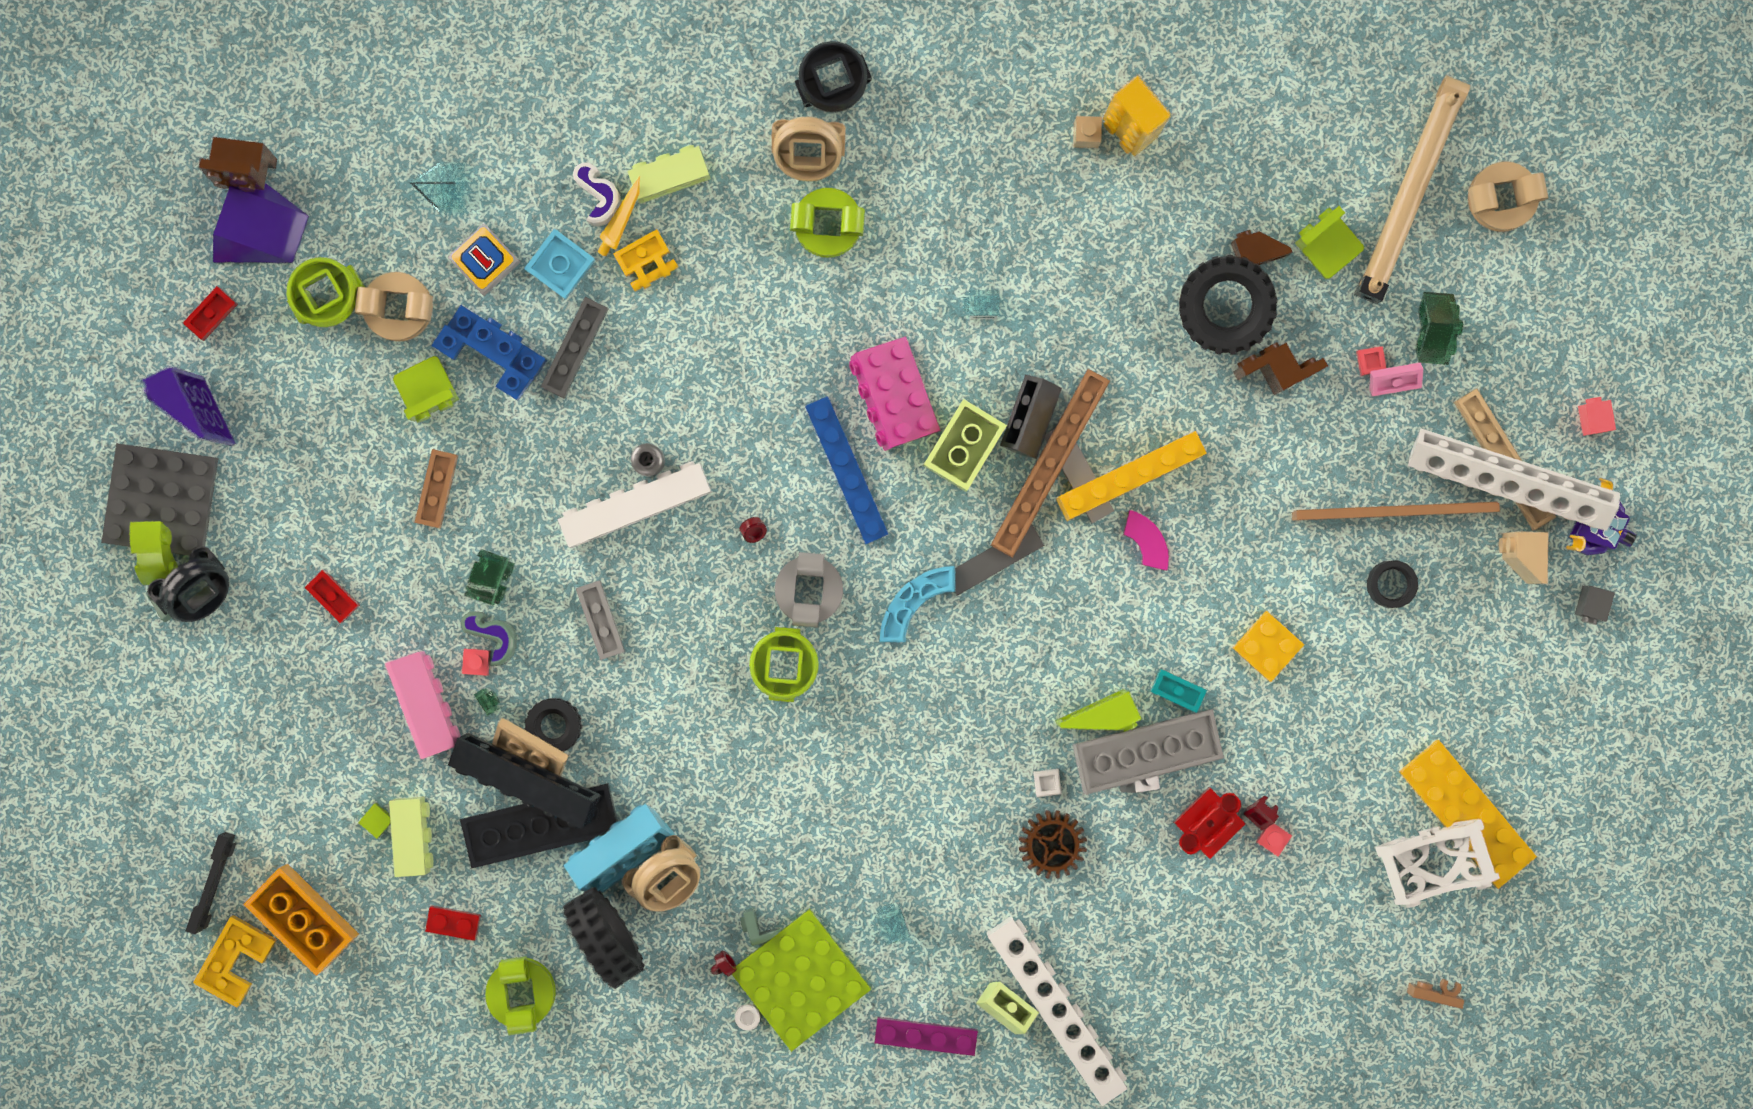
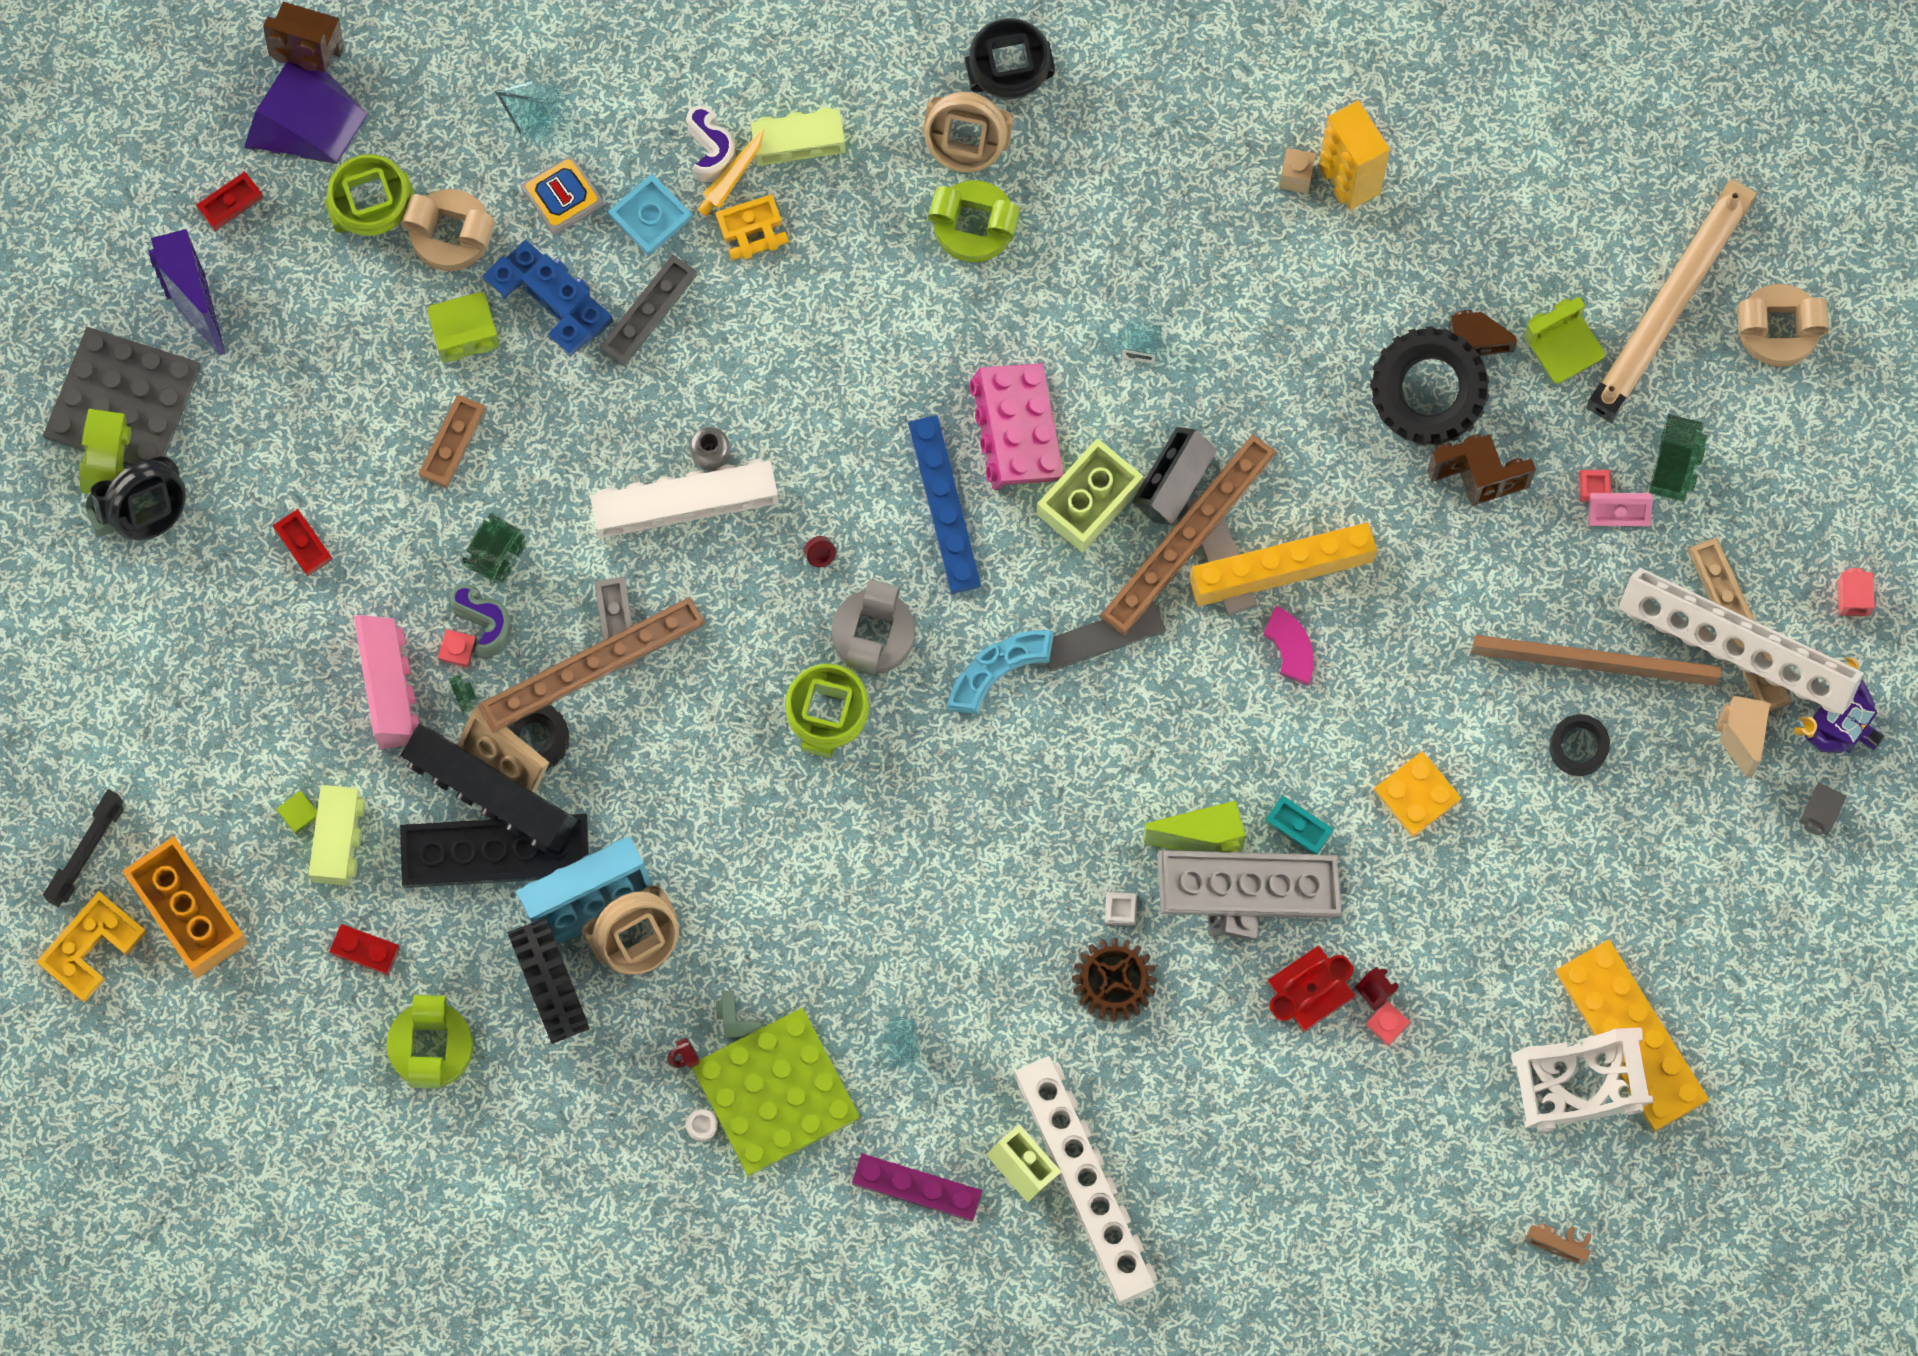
camera: 10 degrees right, 15 degrees down
(586, 664) = (591, 665): none -> medium nougat tile

